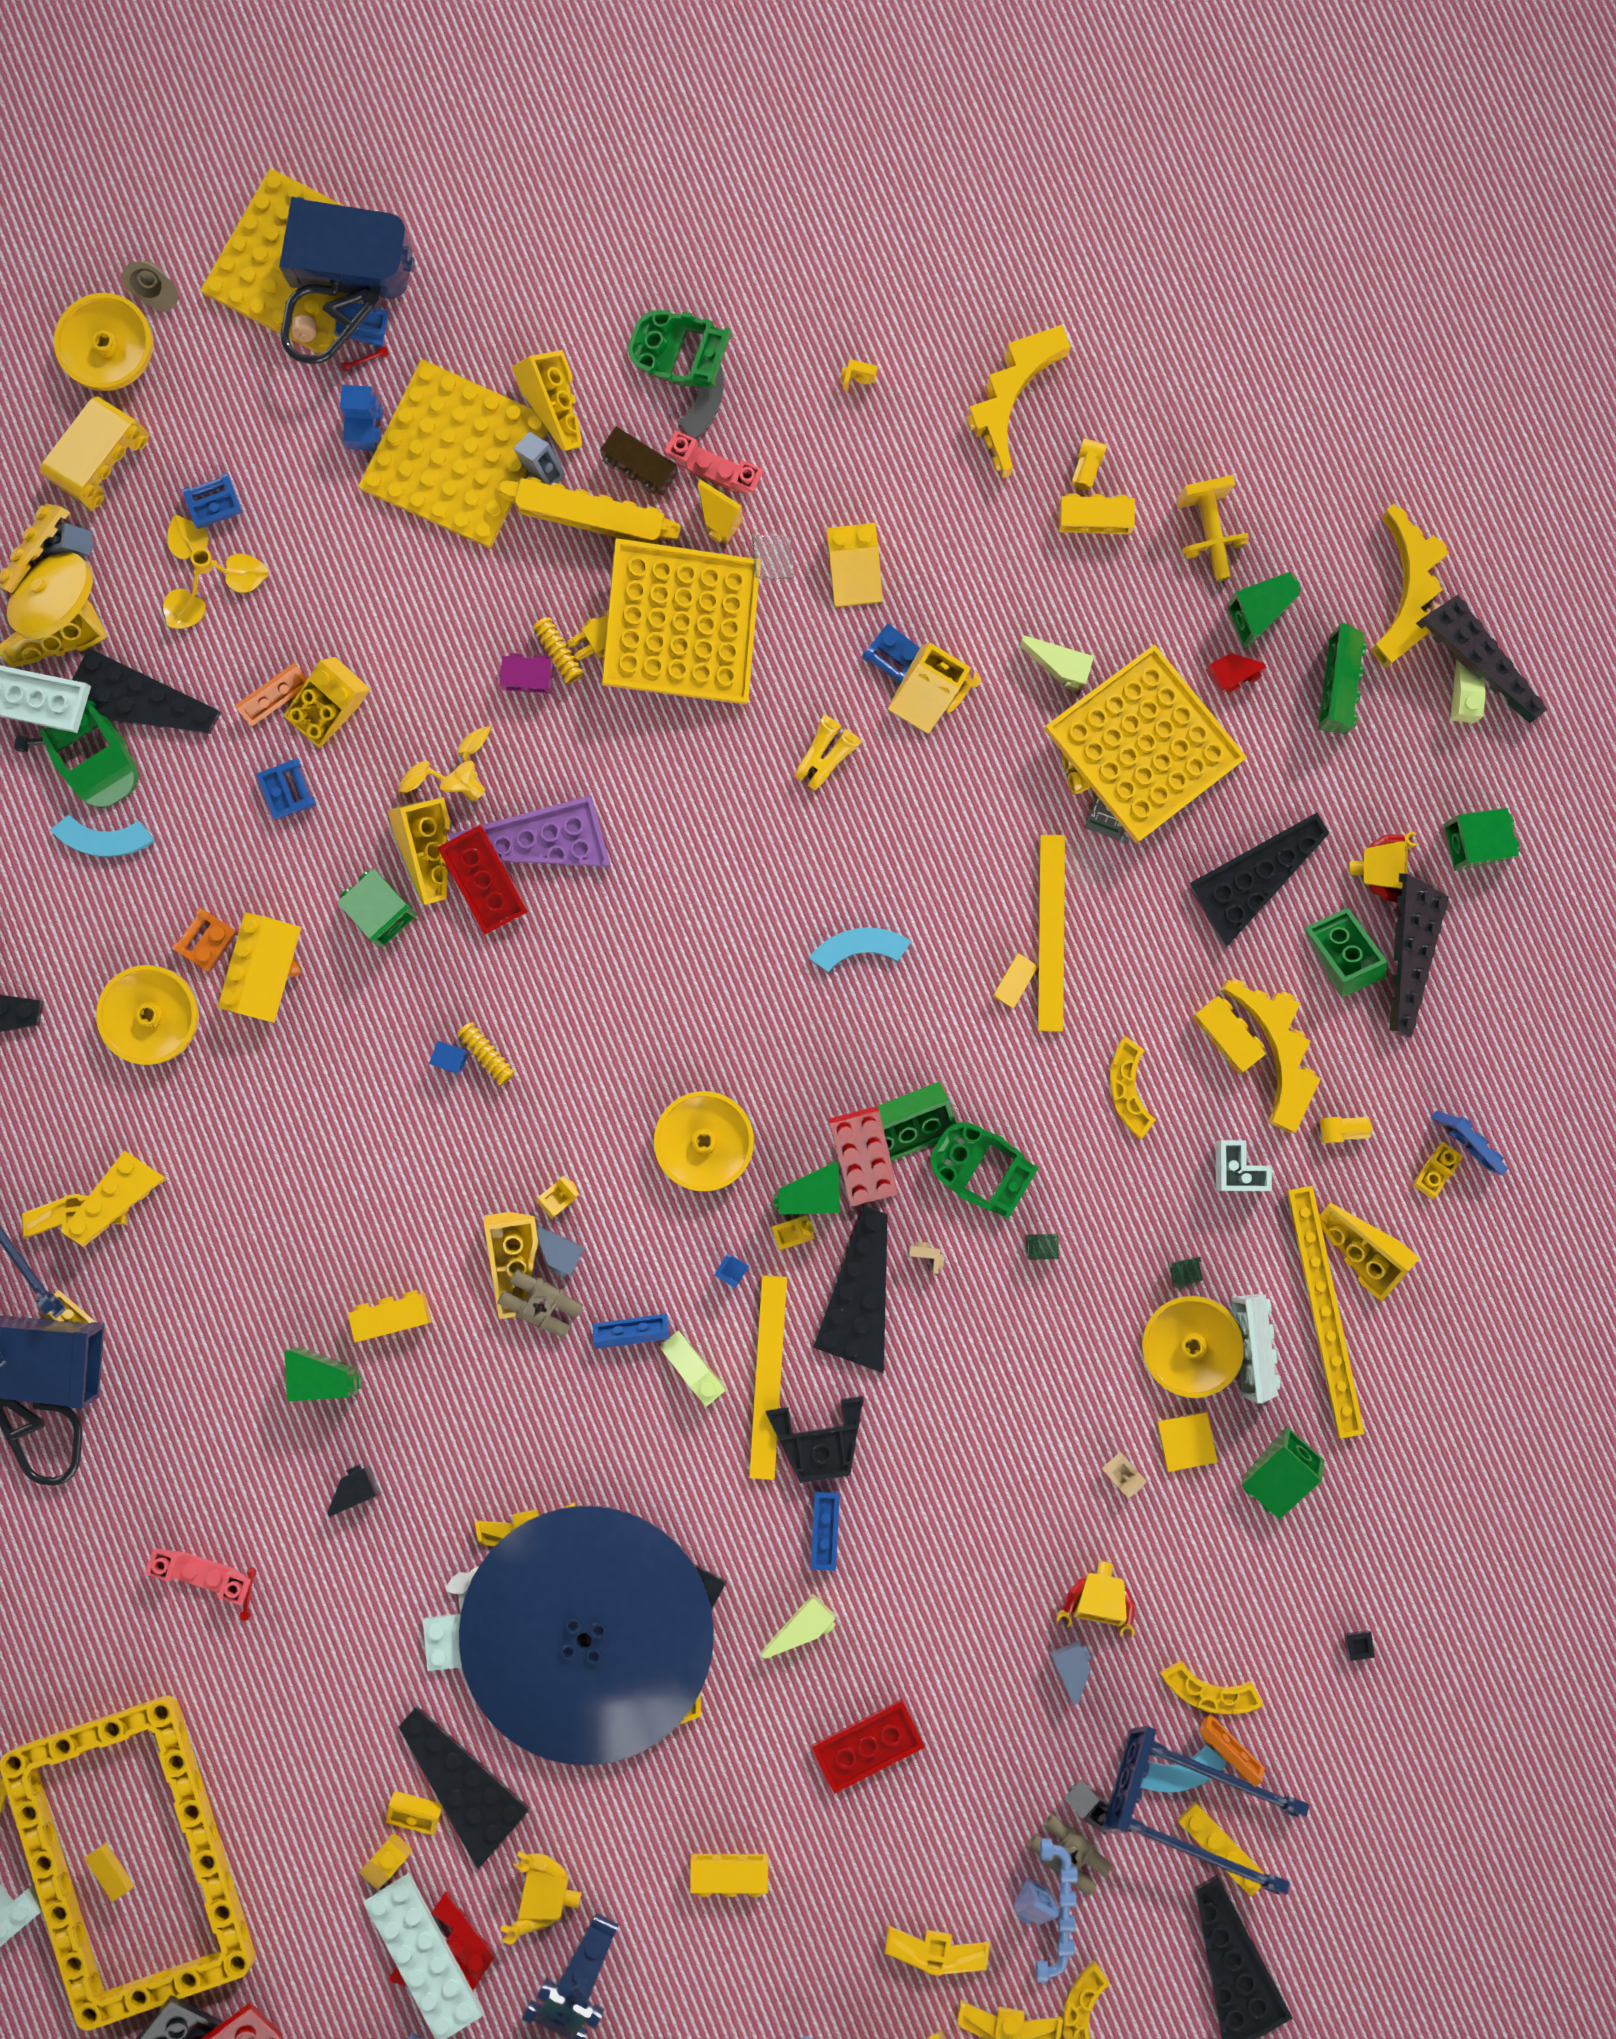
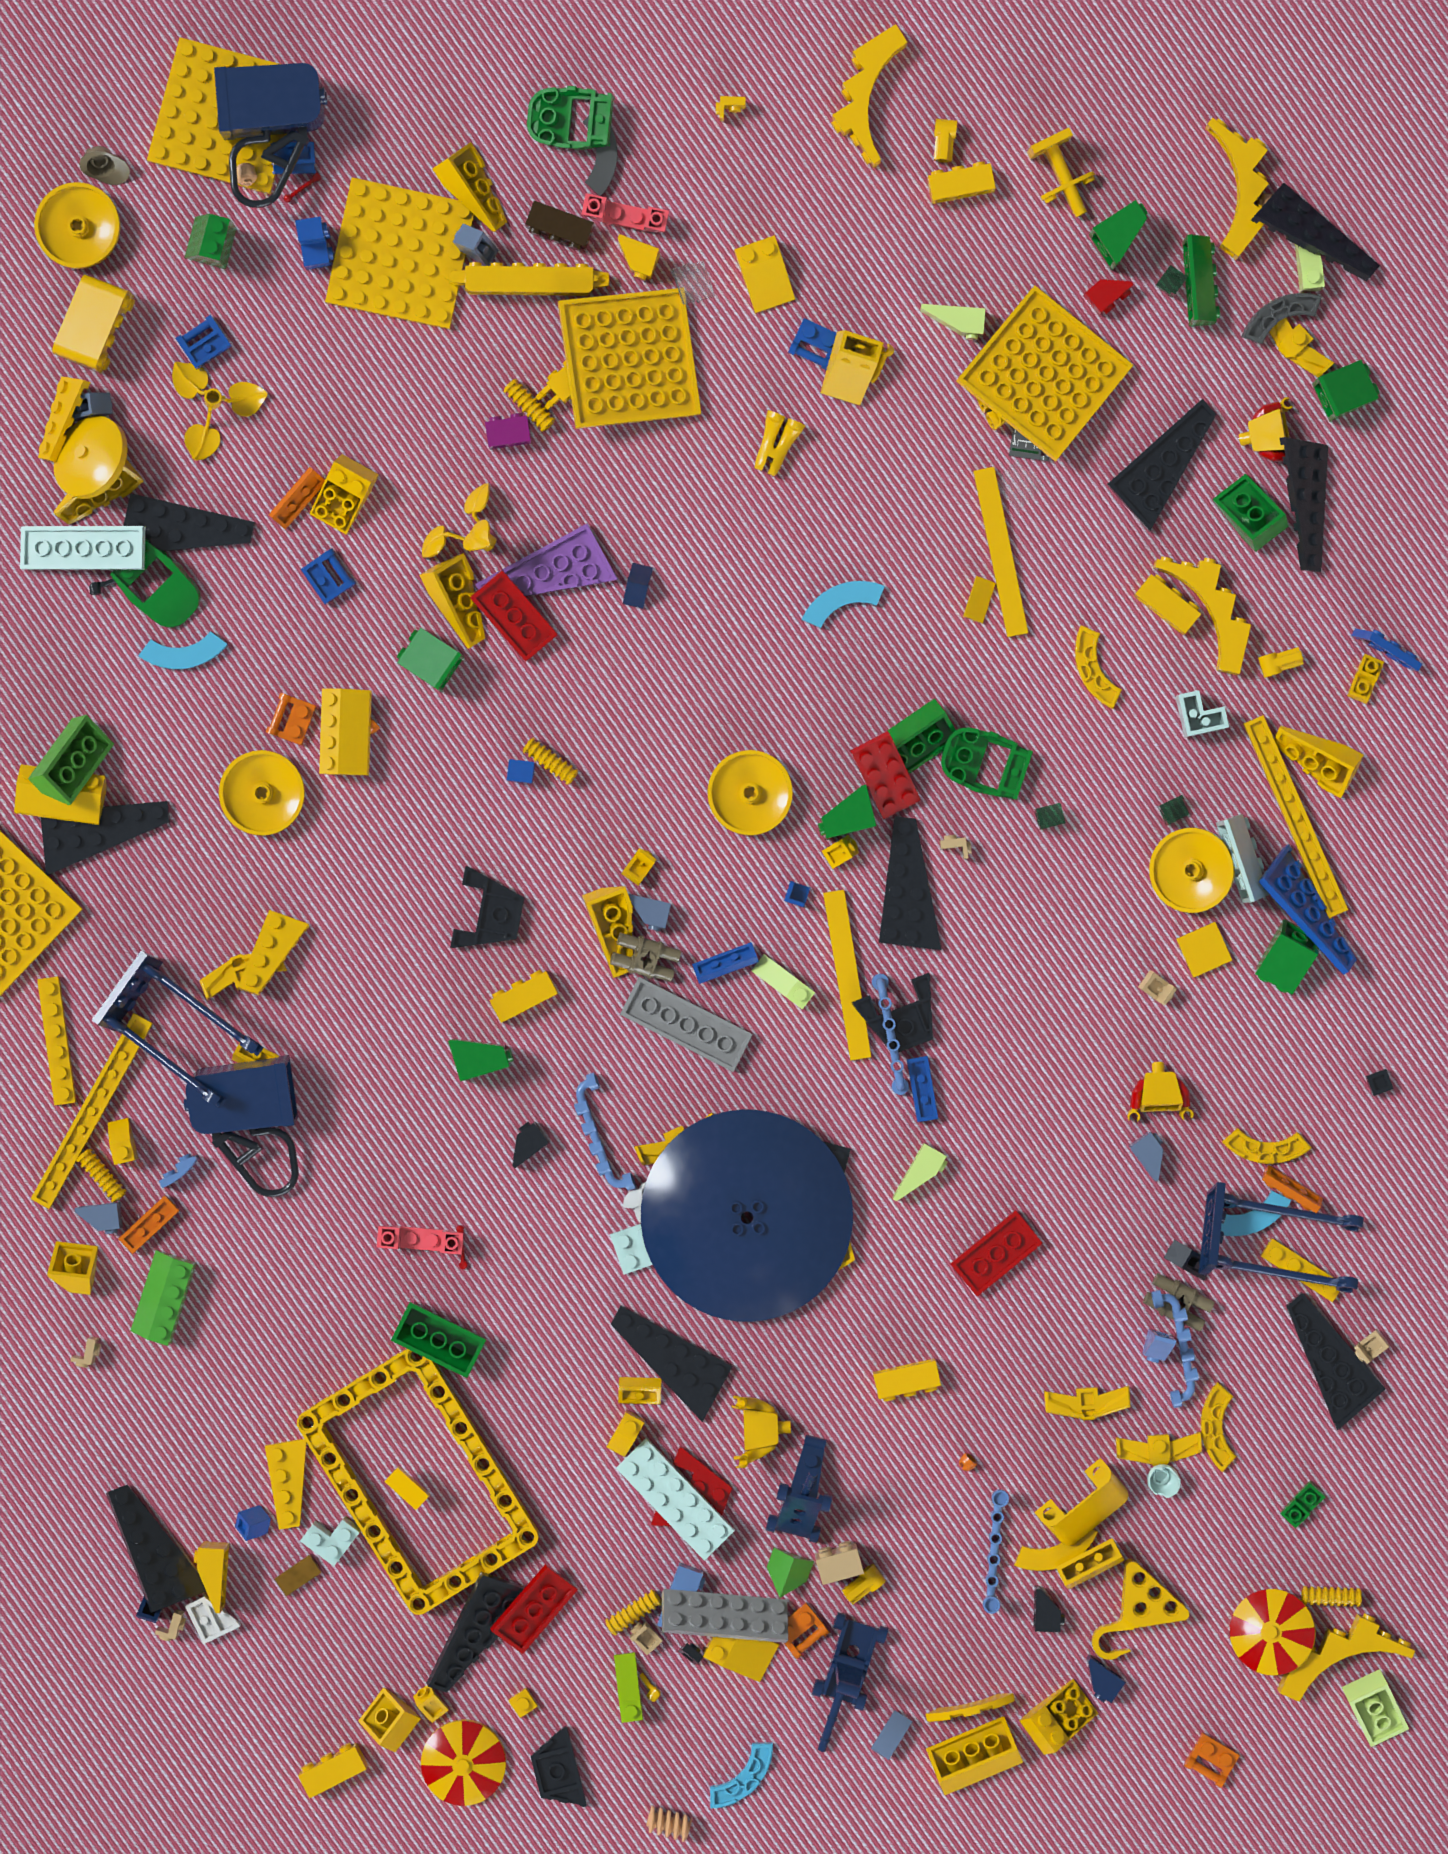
camera: 10 degrees left, 5 degrees up
(191, 1700) = (438, 1339): none -> green slope
(250, 391) = (211, 240): none -> green slope
(383, 1216) = (498, 913): none -> black wing
(431, 1489) = (590, 1128): none -> medium blue bar
(569, 1392) = (686, 1024): none -> light grey plate
(632, 878) = (637, 585): none -> dark blue slope
(779, 1990) = (967, 1462): none -> orange hinge
(800, 1519) = (880, 983): none -> medium blue bar
(1286, 1962) = (1371, 1346): none -> tan bracket
(1309, 674) = (1171, 281): none -> clear green panel
(1317, 1422) = (1305, 907): none -> blue wing
(1424, 732) = (1278, 309): none -> dark grey tile
(1433, 773) = (1294, 346): none -> yellow plate

